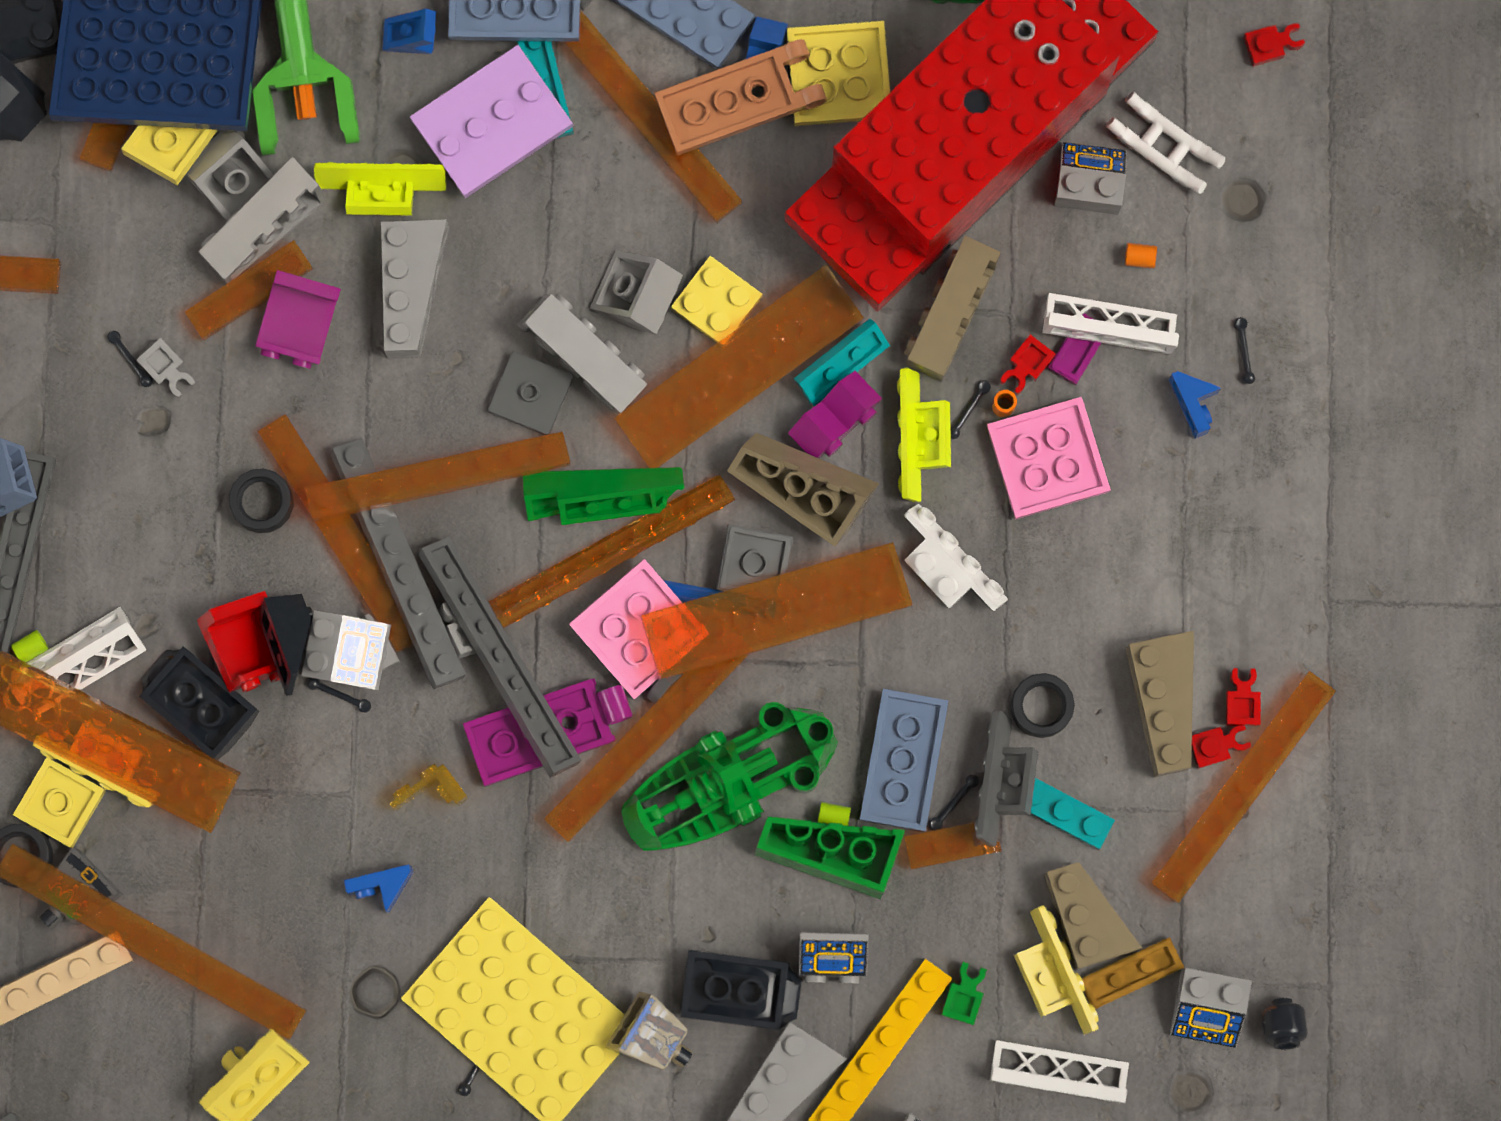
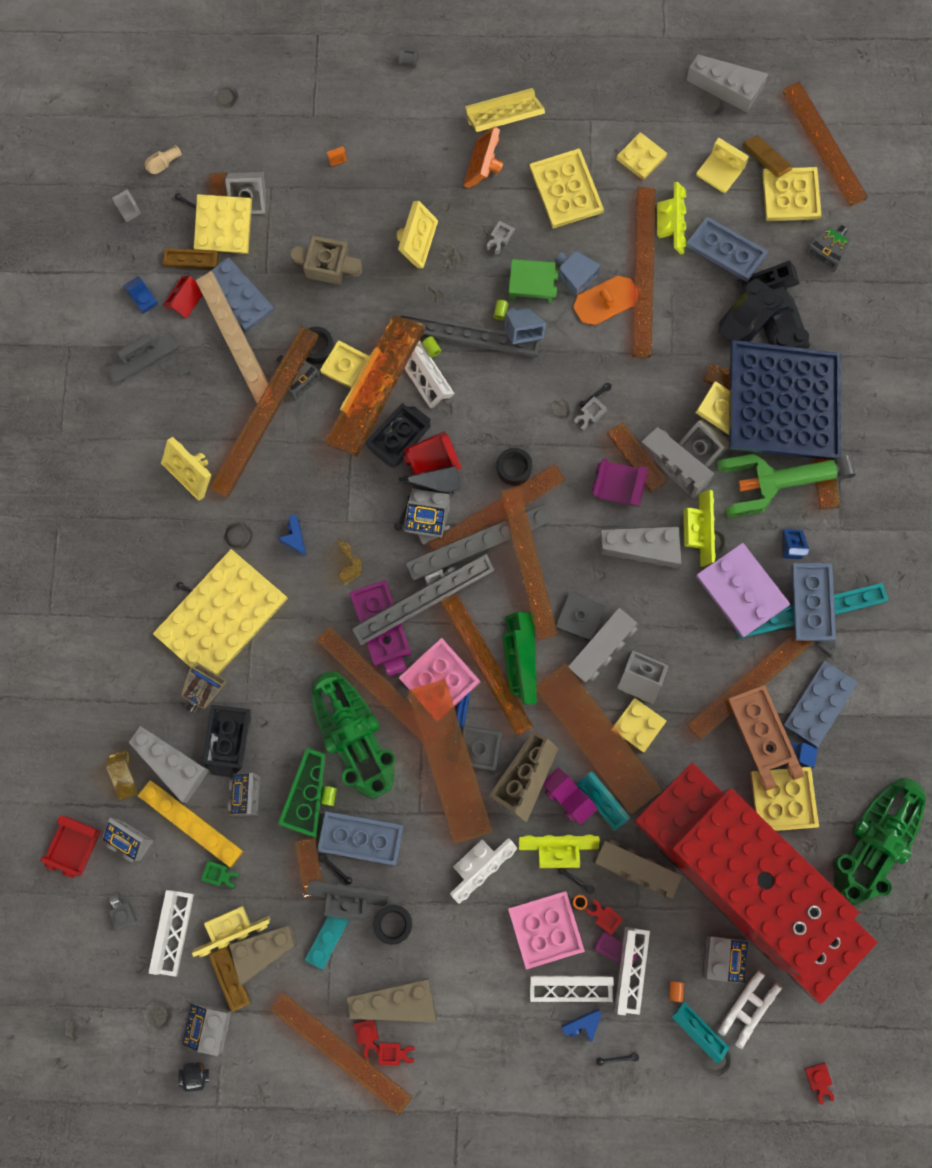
camera: 95 degrees right, 5 degrees down
(1127, 418) = (571, 981): none -> white fence
(1201, 220) = (700, 1032): none -> teal plate

